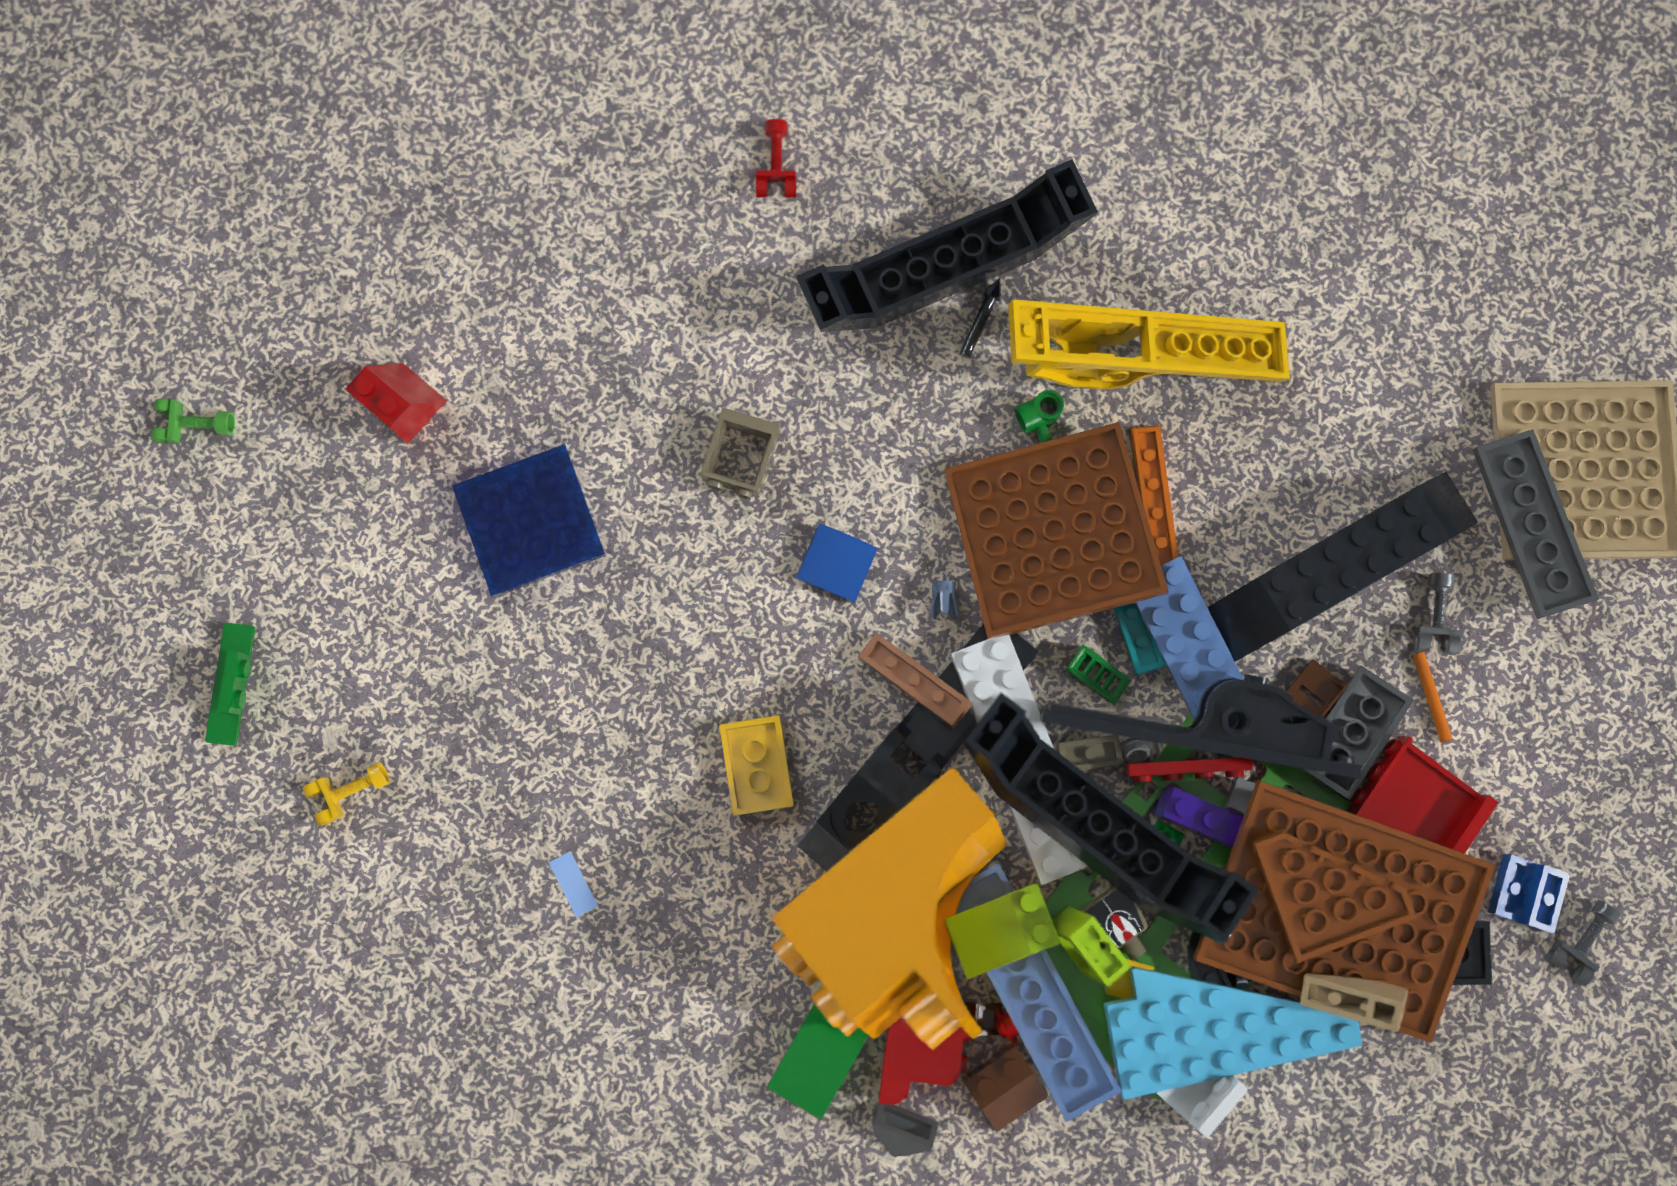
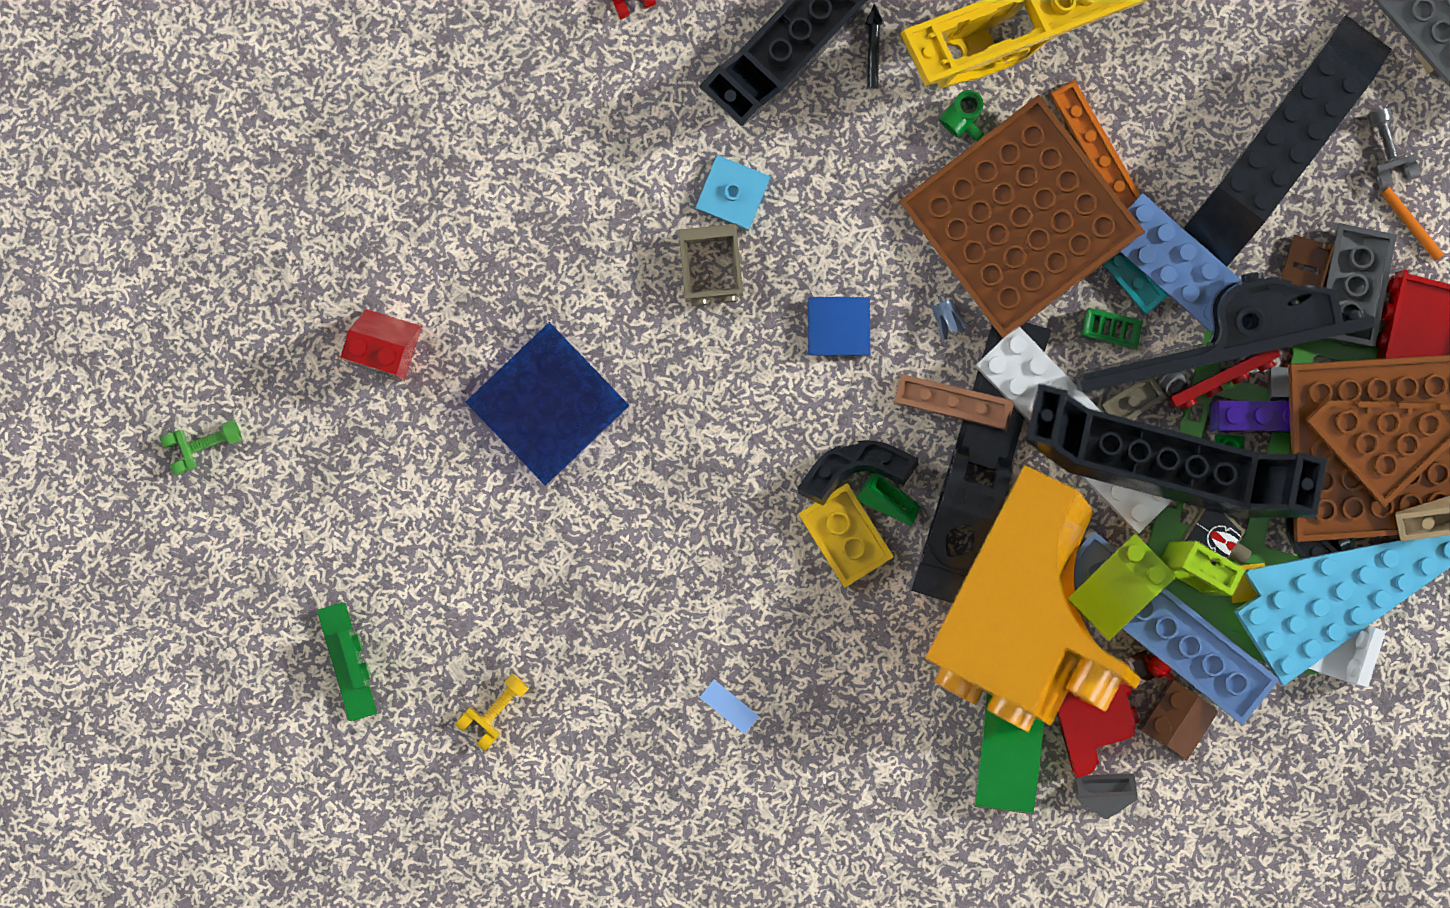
camera: 20 degrees left, 5 degrees up
(783, 693) = (860, 457): none -> black plate
(791, 397) = (732, 192): none -> medium azure plate
(810, 743) = (888, 499): none -> green slope

